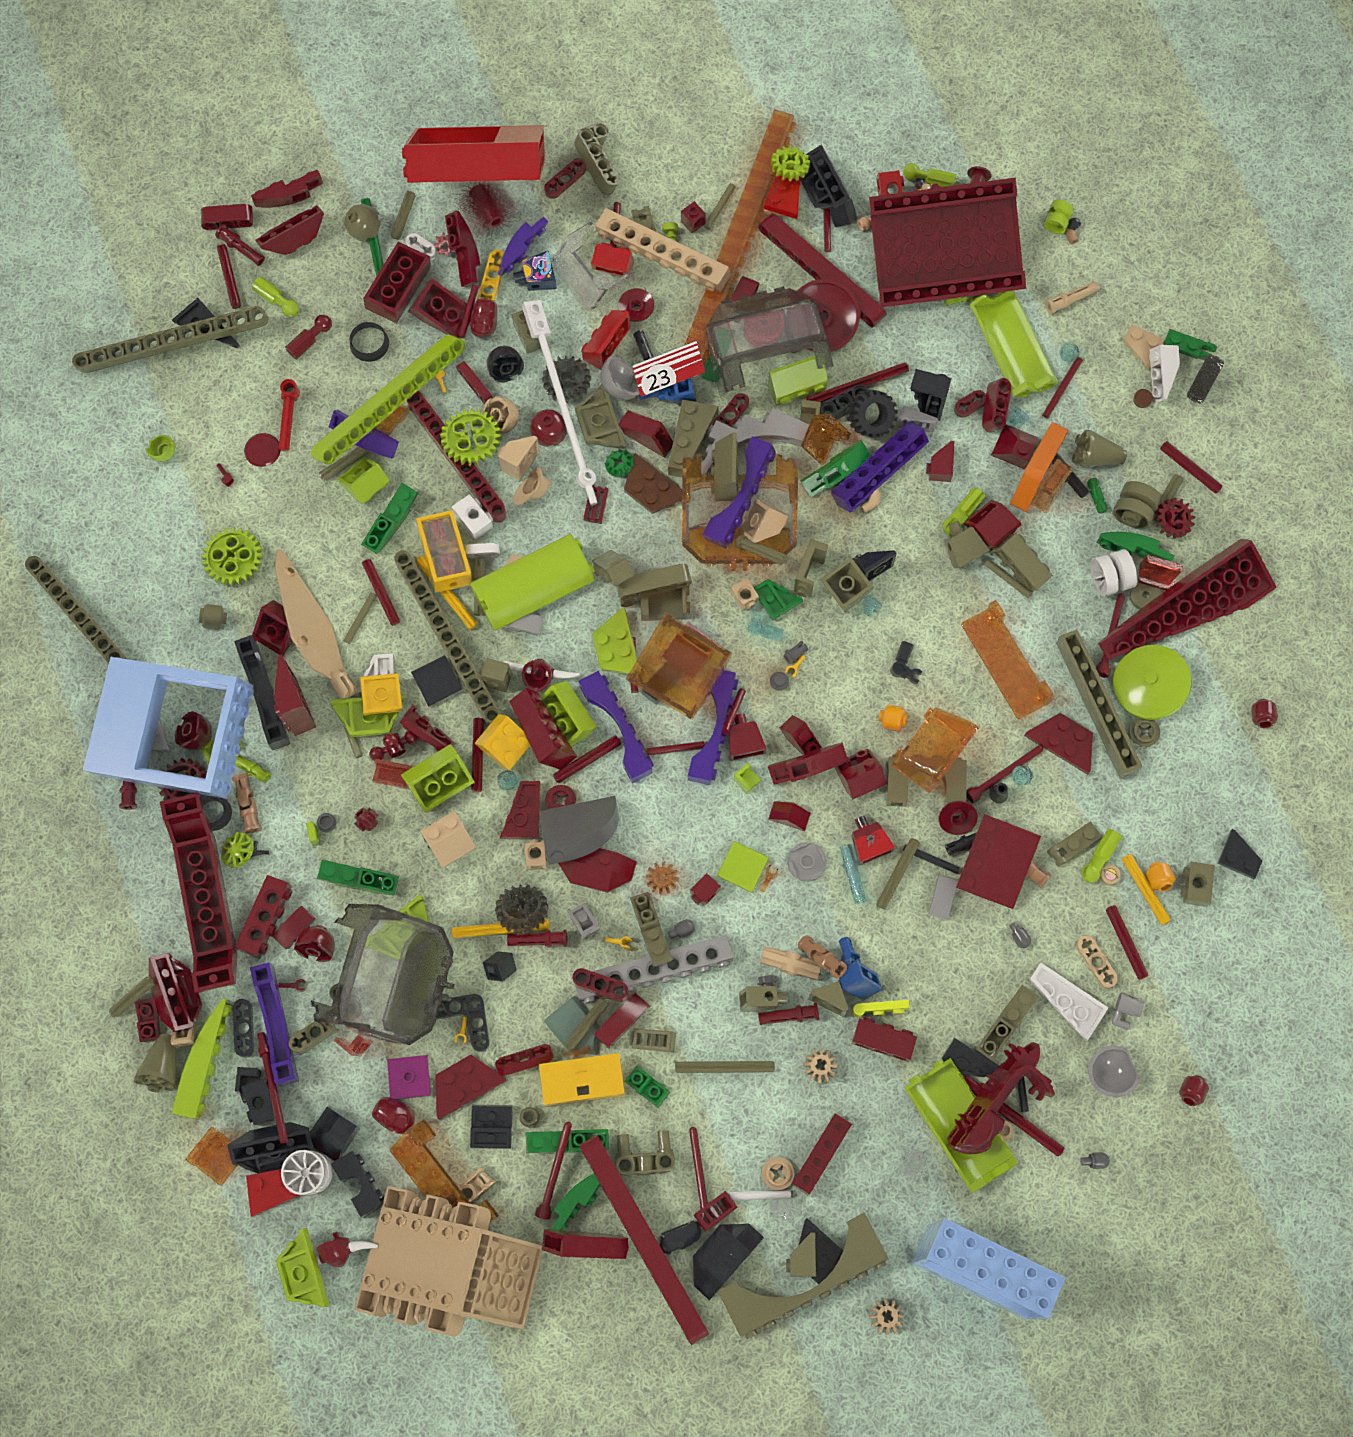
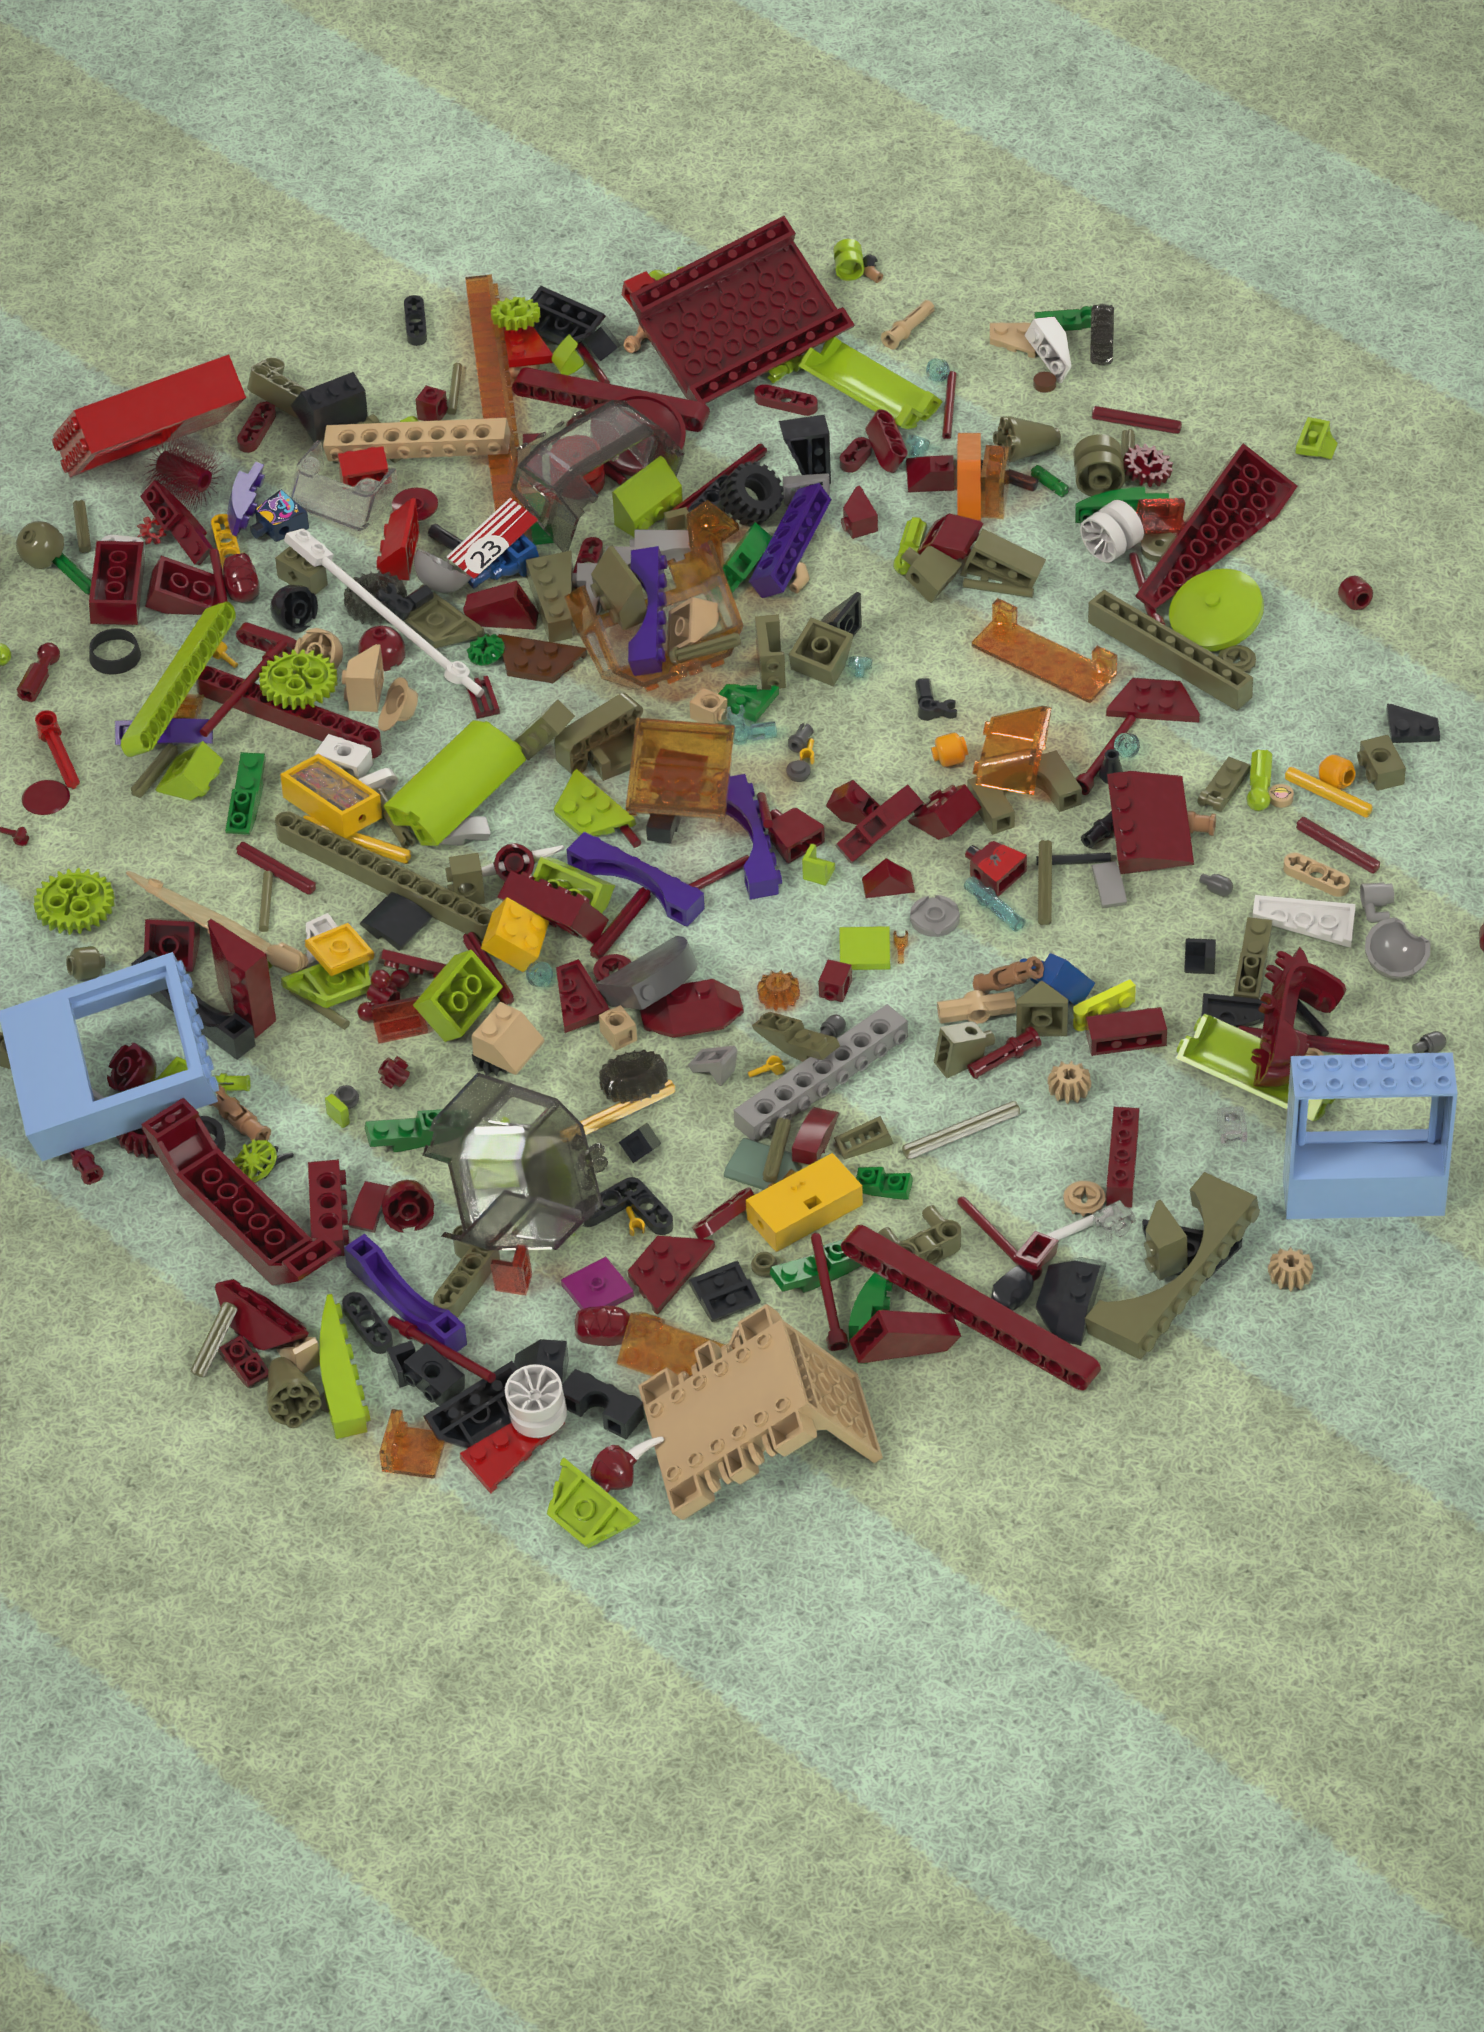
camera: 25 degrees left, 25 degrees down
(292, 985) = (409, 1258): dark red hand -> none
(432, 424) = (242, 689): none -> dark red bar
(547, 938) = (680, 1094): dark red pin -> none
(576, 402) = (402, 606): none -> black bar
(593, 978) = (771, 1097): dark red beam -> none
(619, 192) = (331, 403): none -> black slope
(723, 135) = (415, 314): none -> black beam
(808, 220) = (566, 358): none -> lime piece
(947, 320) = (765, 396): none -> dark red beam
(958, 824) = (1090, 806): dark red dish -> none
(972, 998) = (1200, 956): none -> black panel
(1313, 551) = (1316, 439): none -> lime slope

